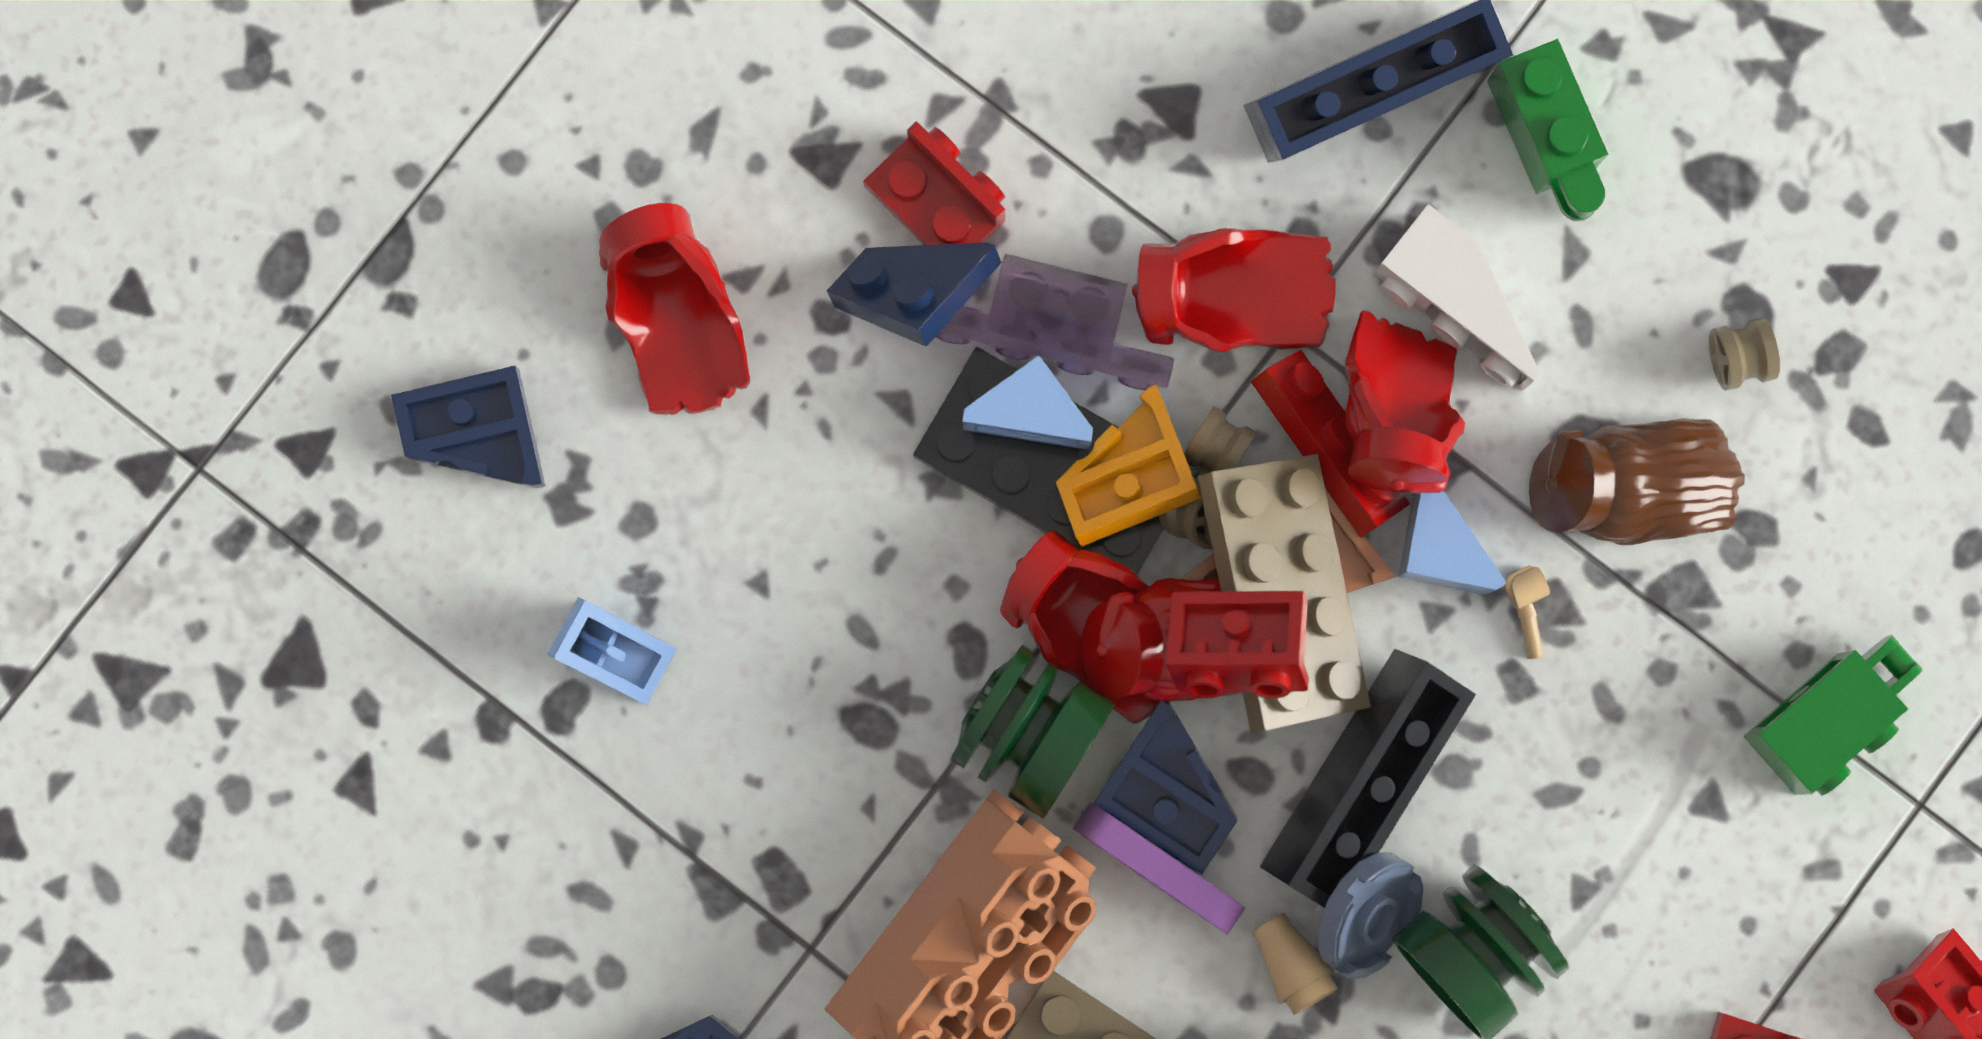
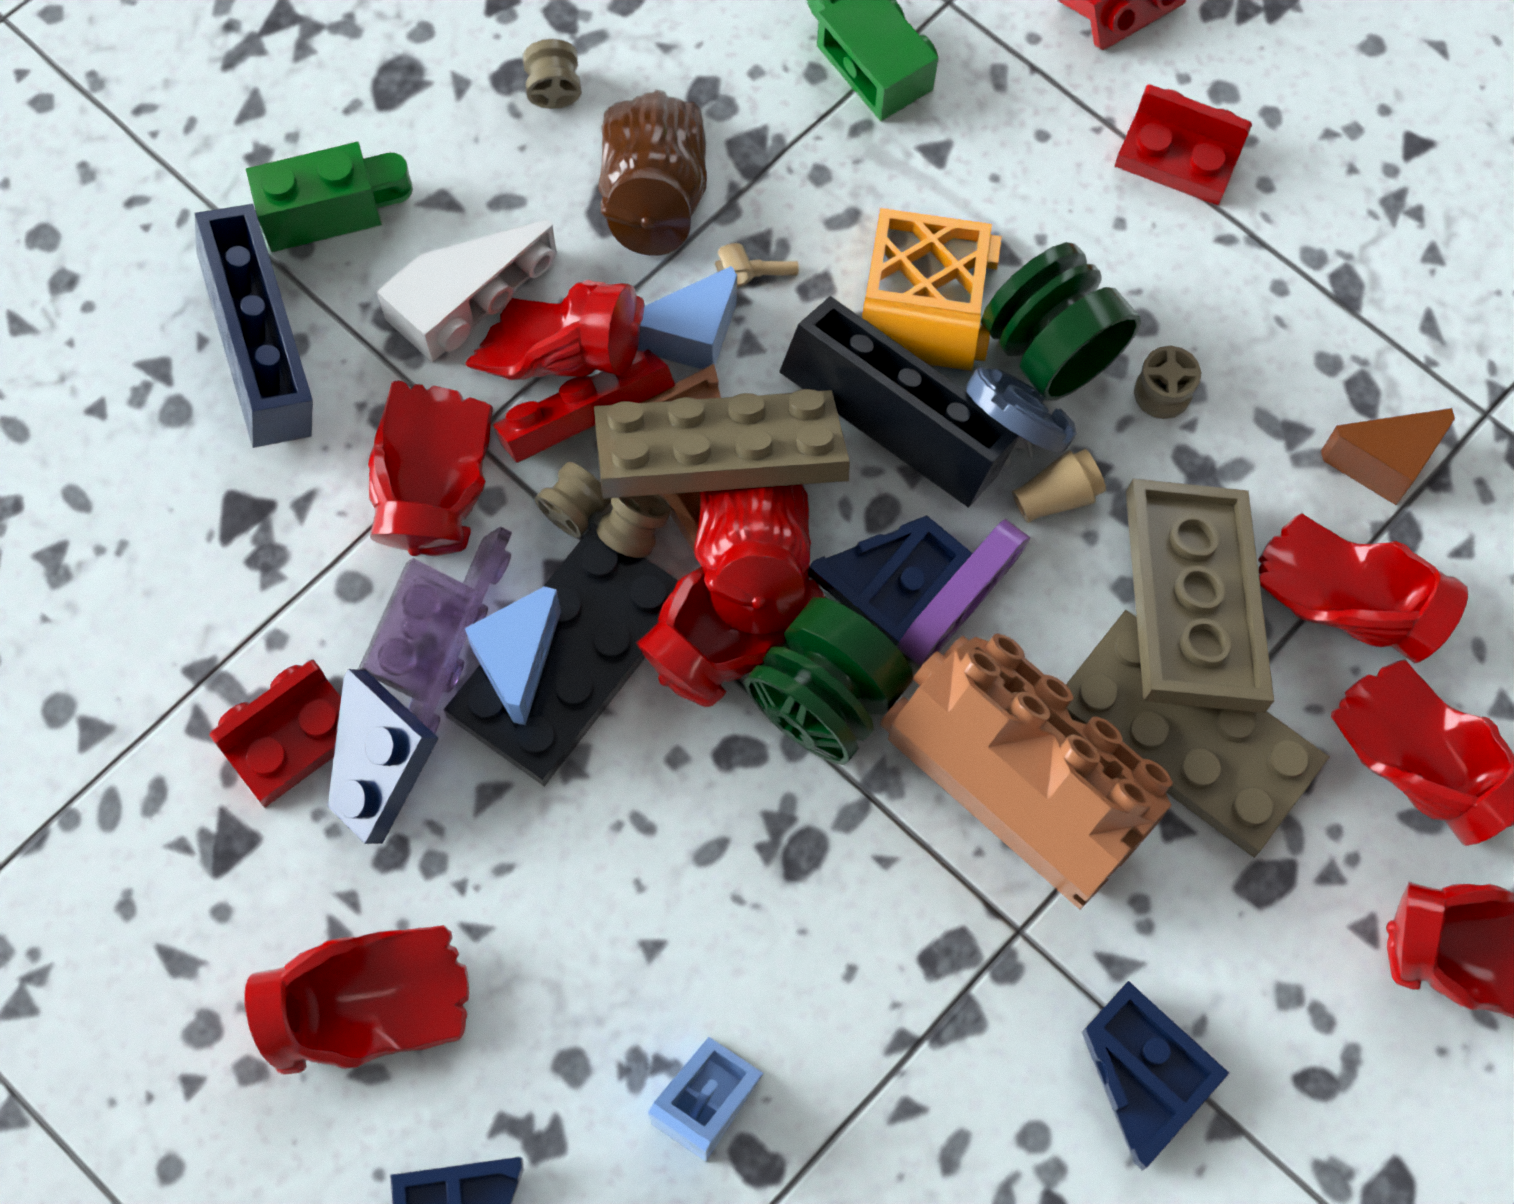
camera: 90 degrees left, 15 degrees down
(1128, 474) = (591, 567): light orange wing -> none
(1238, 642) = (767, 465): red bracket -> none
(1470, 811) = (921, 318): none -> light orange piece

